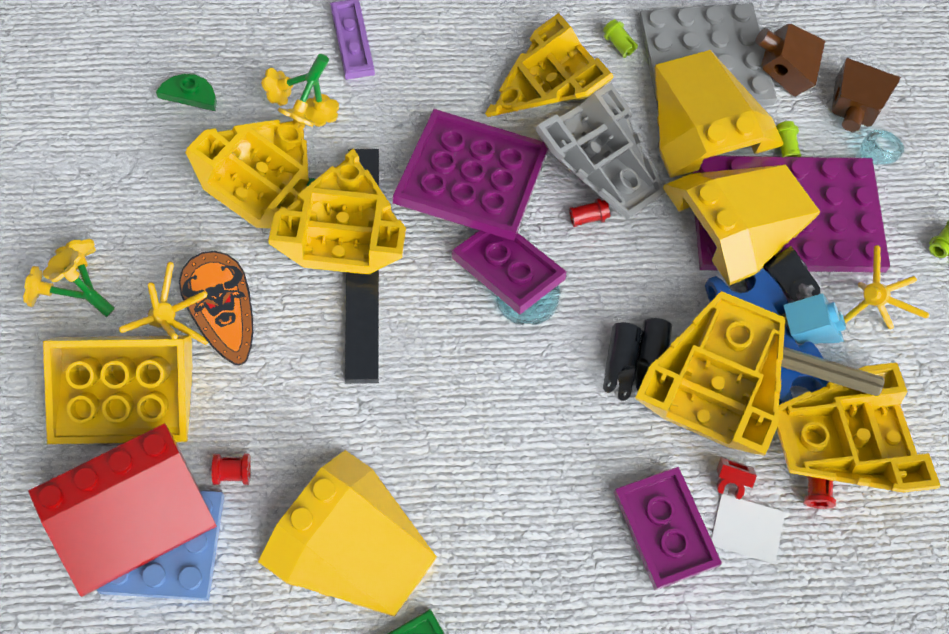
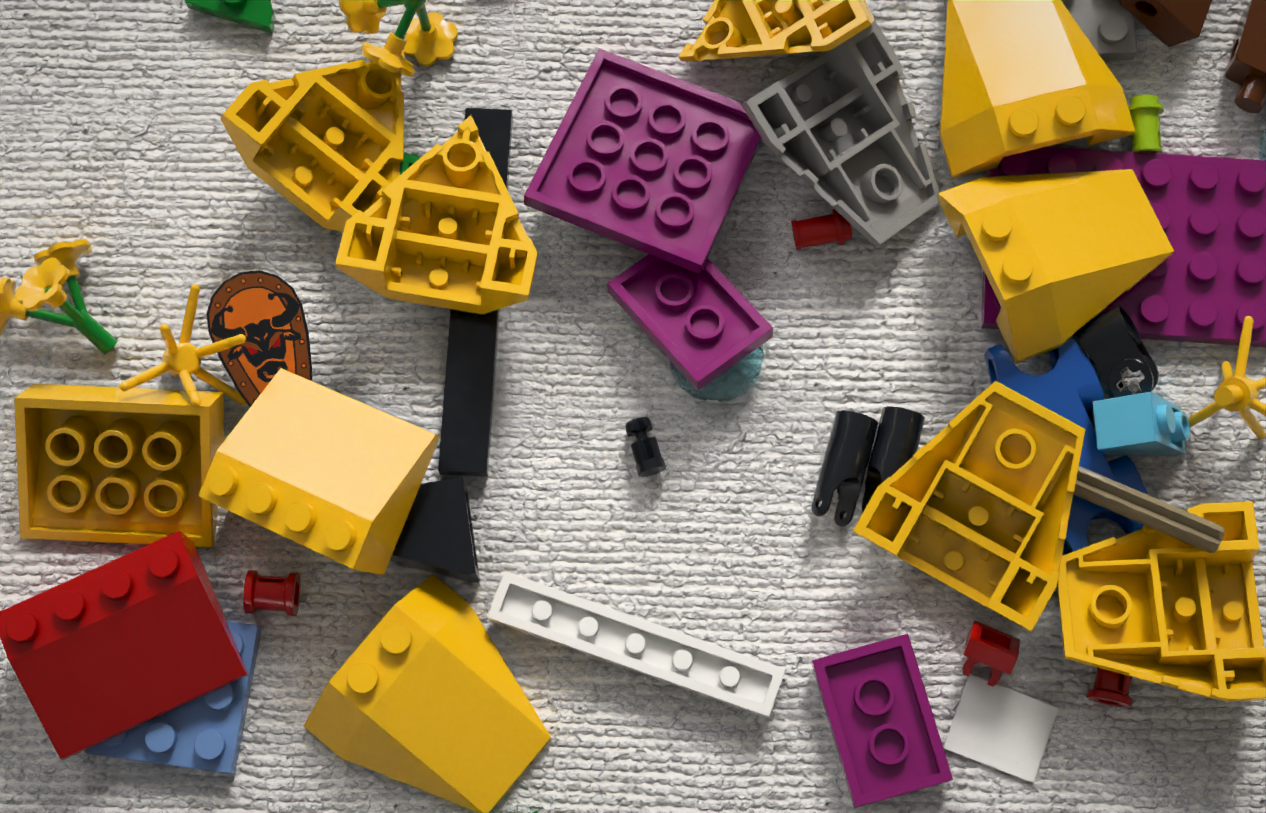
camera: 15 degrees right, 10 degrees up
(265, 379) = (322, 471): none -> yellow slope
(331, 417) = (440, 532): none -> black slope
(486, 357) = (646, 448): none -> black piece
(492, 487) = (636, 644): none -> white plate

